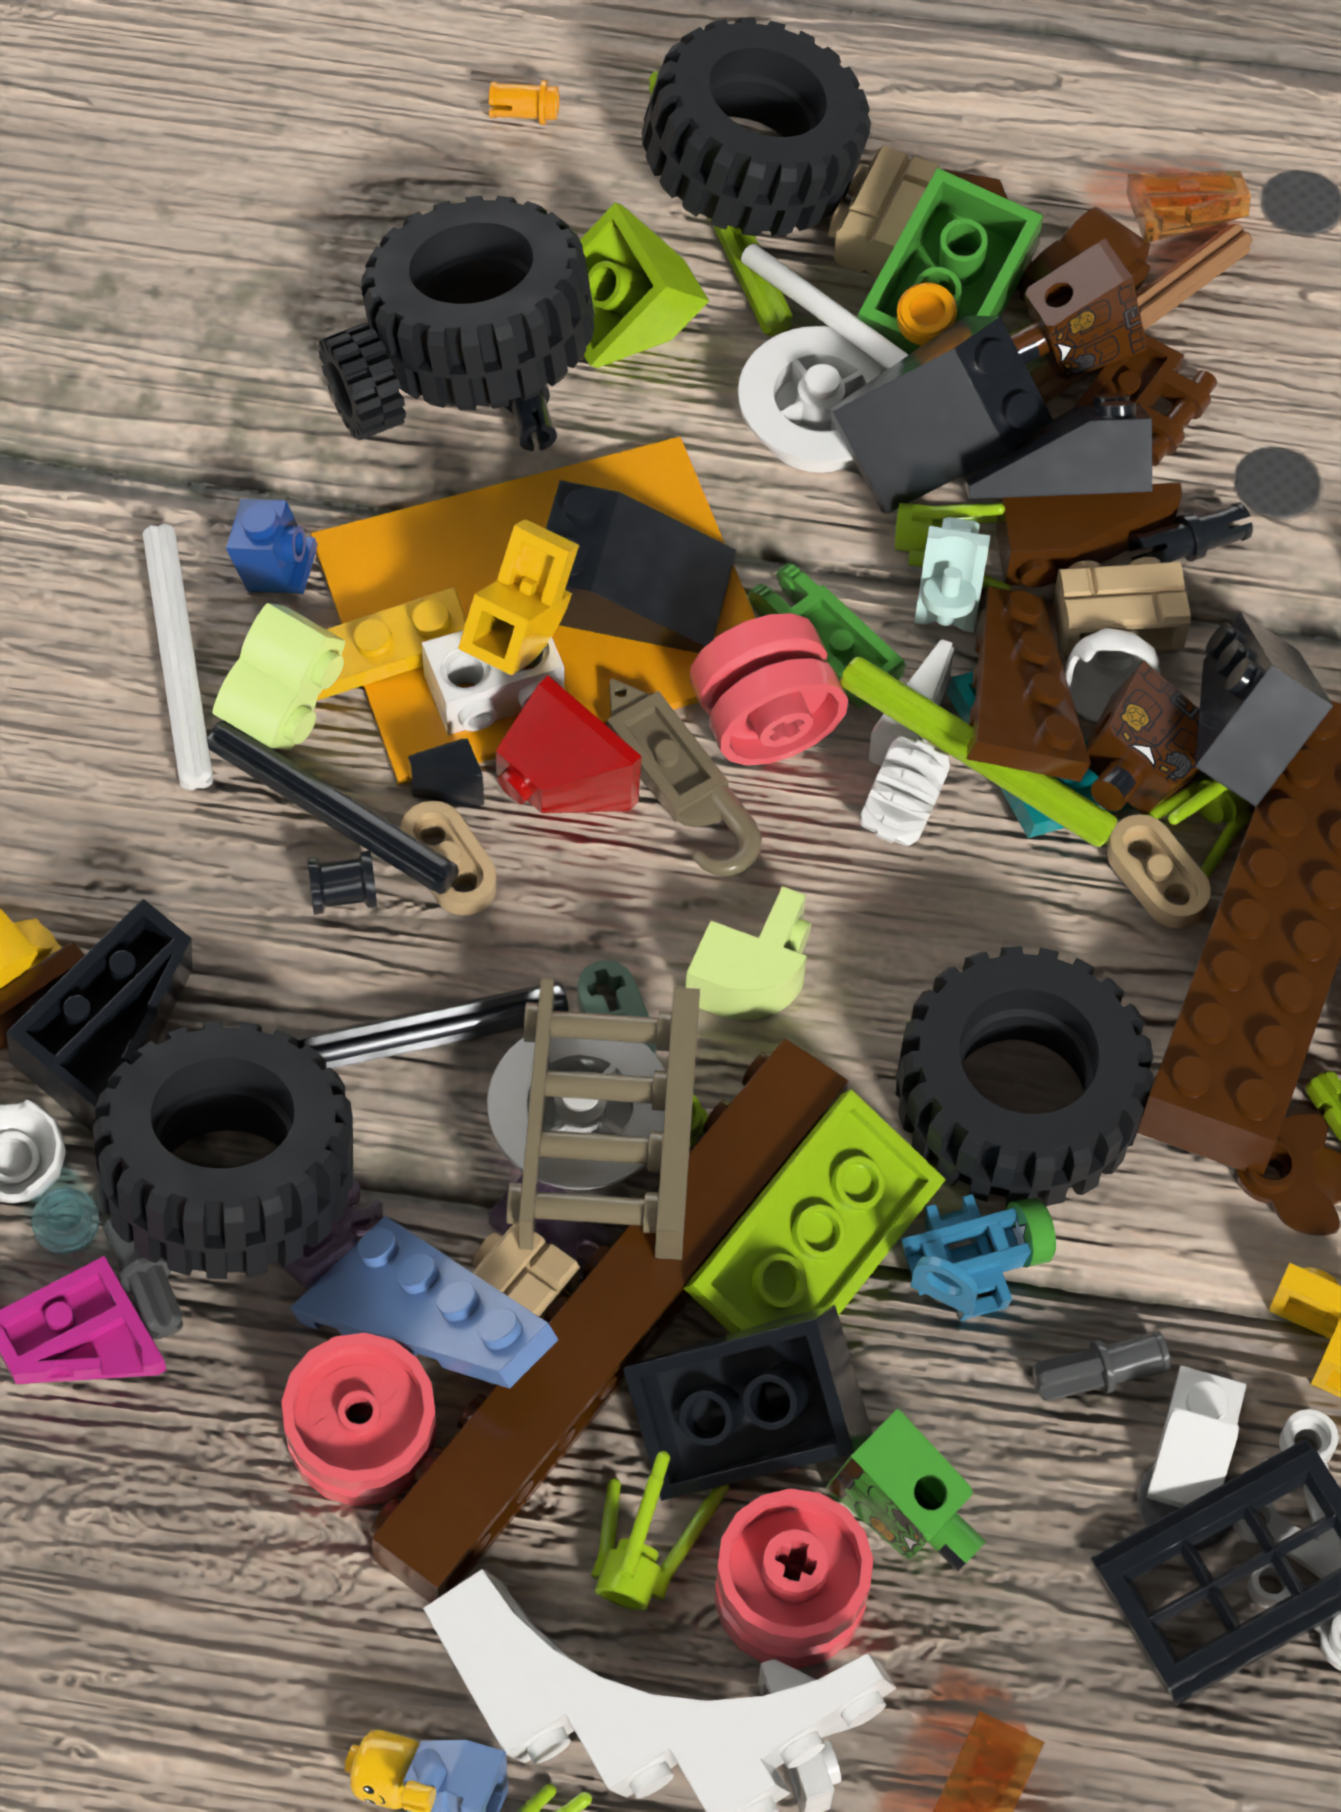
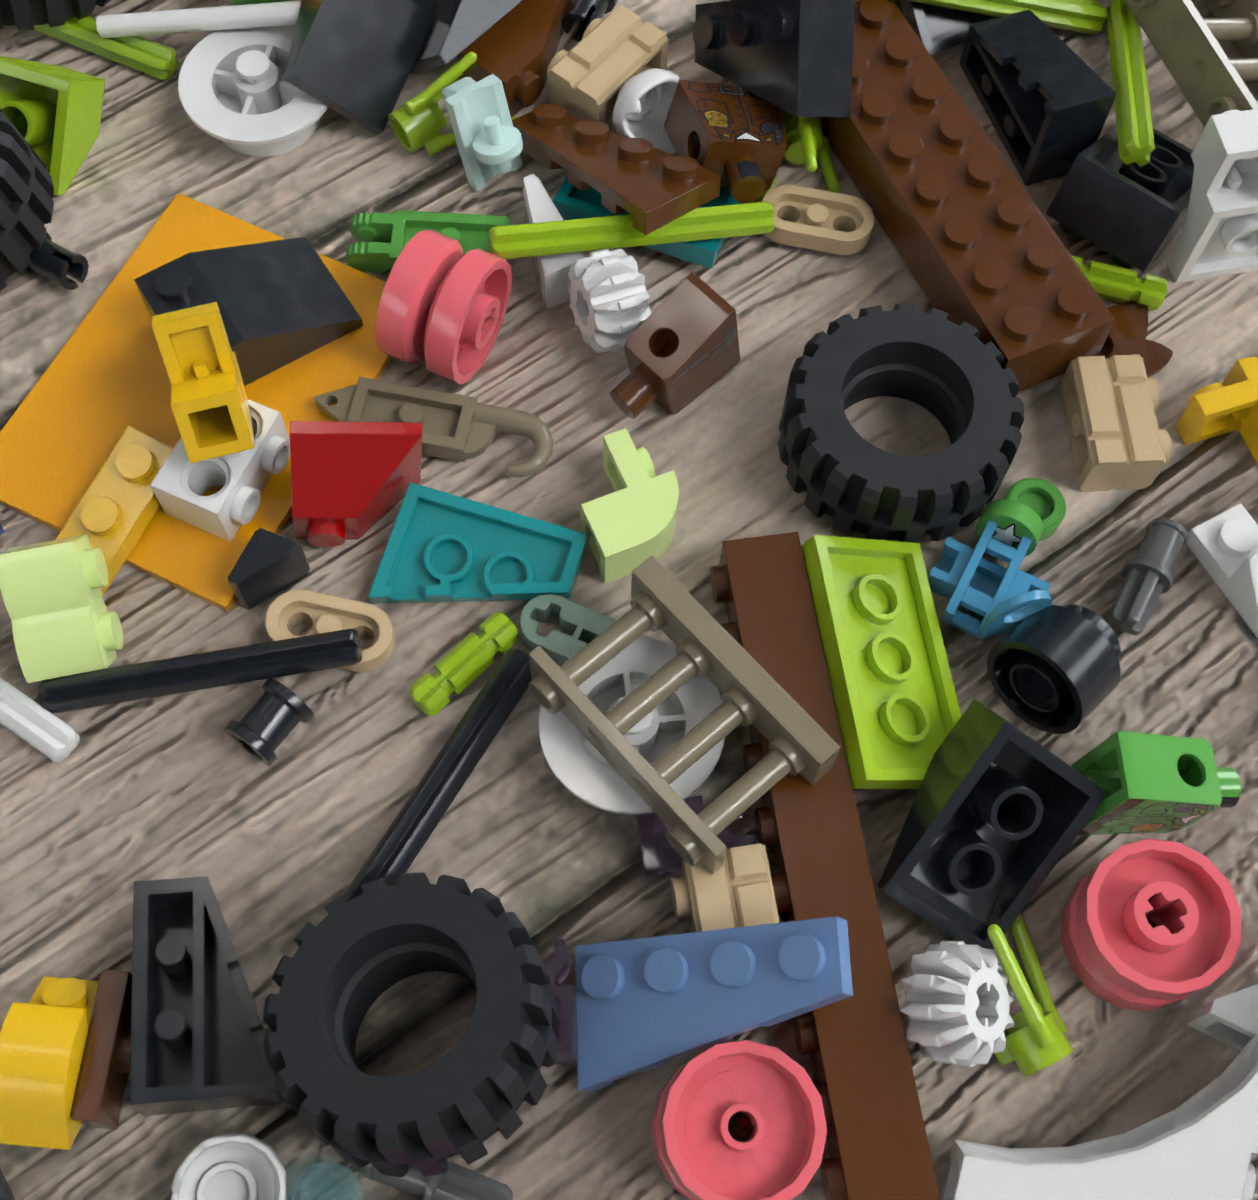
camera: 45 degrees left, 5 degrees up
(517, 964) = (463, 663): none -> lime axle
(591, 1486) = (957, 1003): none -> white gear
(606, 892) = (473, 552): none -> teal wing
(914, 875) = (679, 350): none -> reddish brown torso
(941, 1352) = (1056, 667): none -> black piece
(1080, 1241) = (1043, 499): none -> bright green tile
(1211, 1232) = (1113, 423): none -> tan brick

